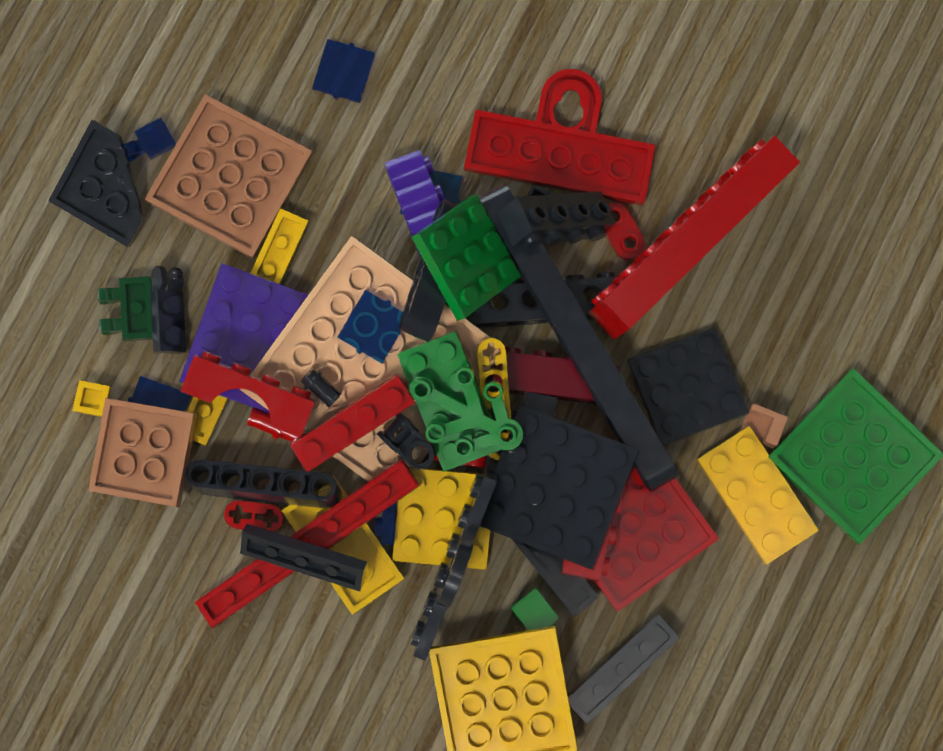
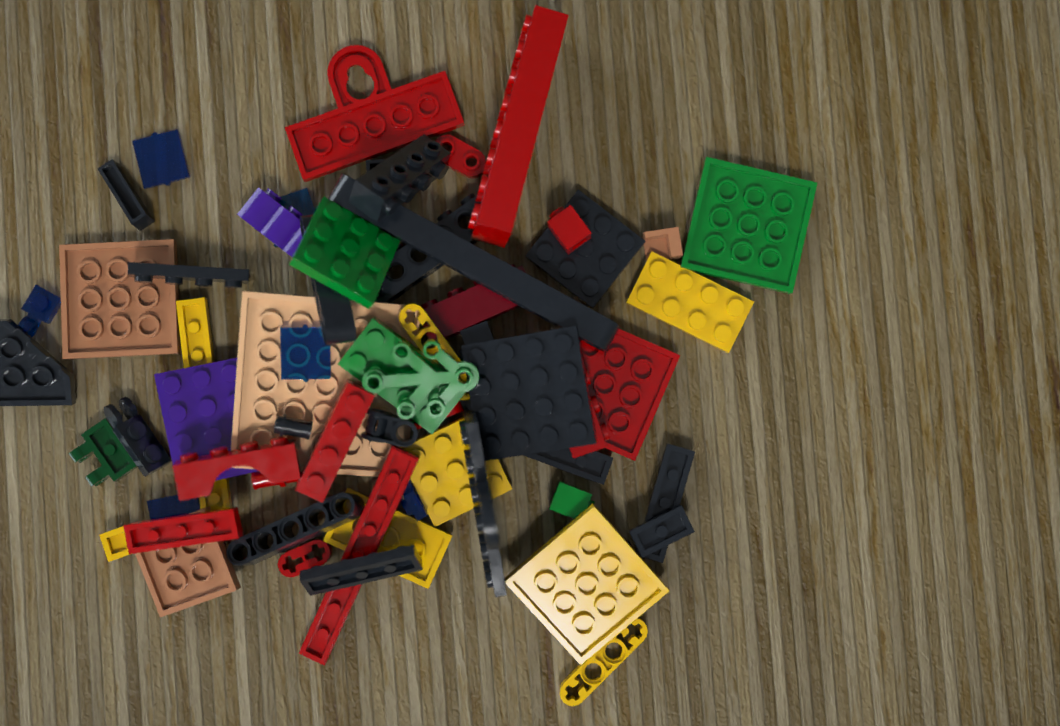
camera: 25 degrees left, 5 degrees up
(162, 421) = (183, 530): none -> red plate
(291, 85) = (126, 195): none -> black piece
(297, 184) = (177, 273): none -> black plate
(603, 692) = (661, 531): none -> black plate
(684, 358) = (568, 228): none -> red brick

